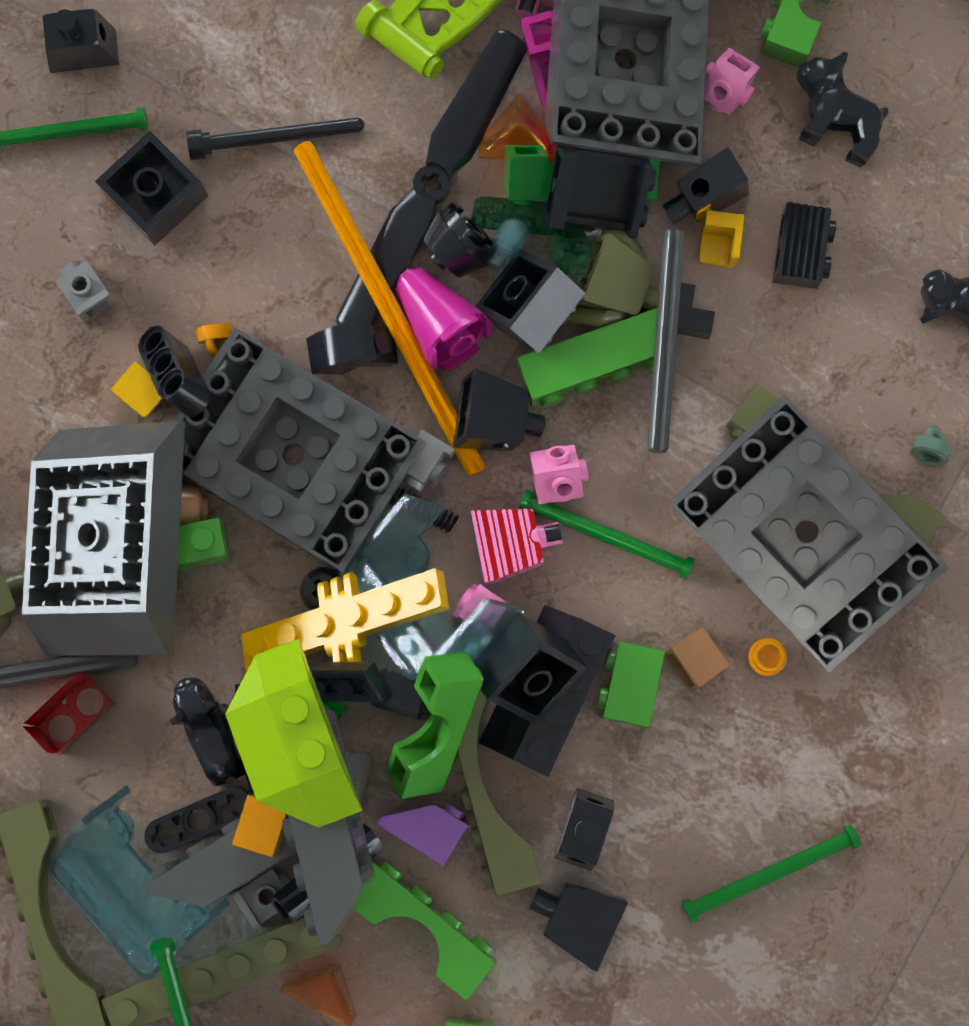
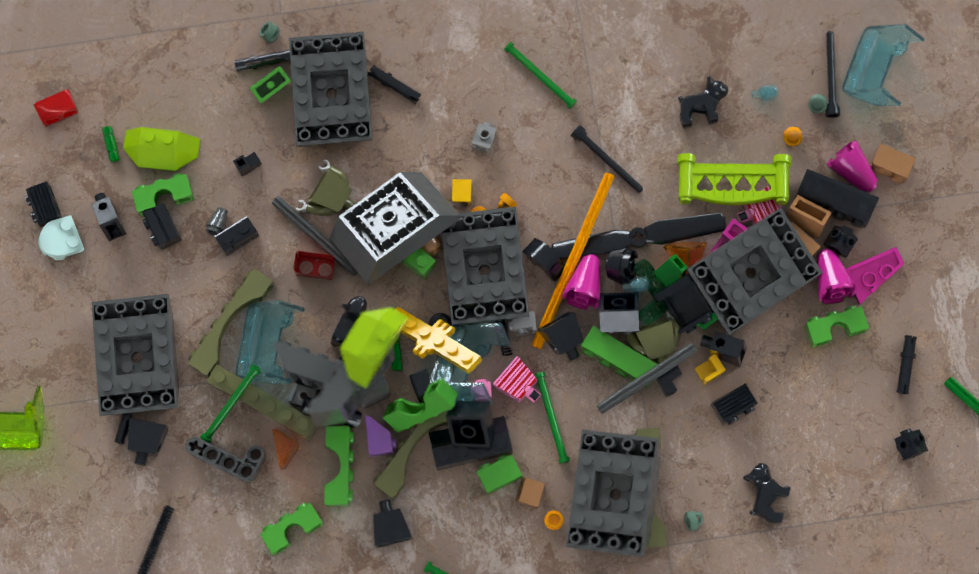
camera: 50 degrees right, 5 degrees down
(79, 40) = (580, 53): black torso -> none
(152, 188) = (545, 130): black brick -> none
(168, 821) = (302, 336): black beam -> none
(173, 371) = (479, 197): black beam -> none
(260, 828) = (329, 363): light orange brick -> none
(349, 681) = (408, 356): black tile -> none
(558, 474) = (559, 379): bright pink brick -> none
(585, 829) = (426, 499): black torso -> none
(729, 82) = (777, 321): bright pink brick -> none
(838, 108) = (803, 374): black animal -> none

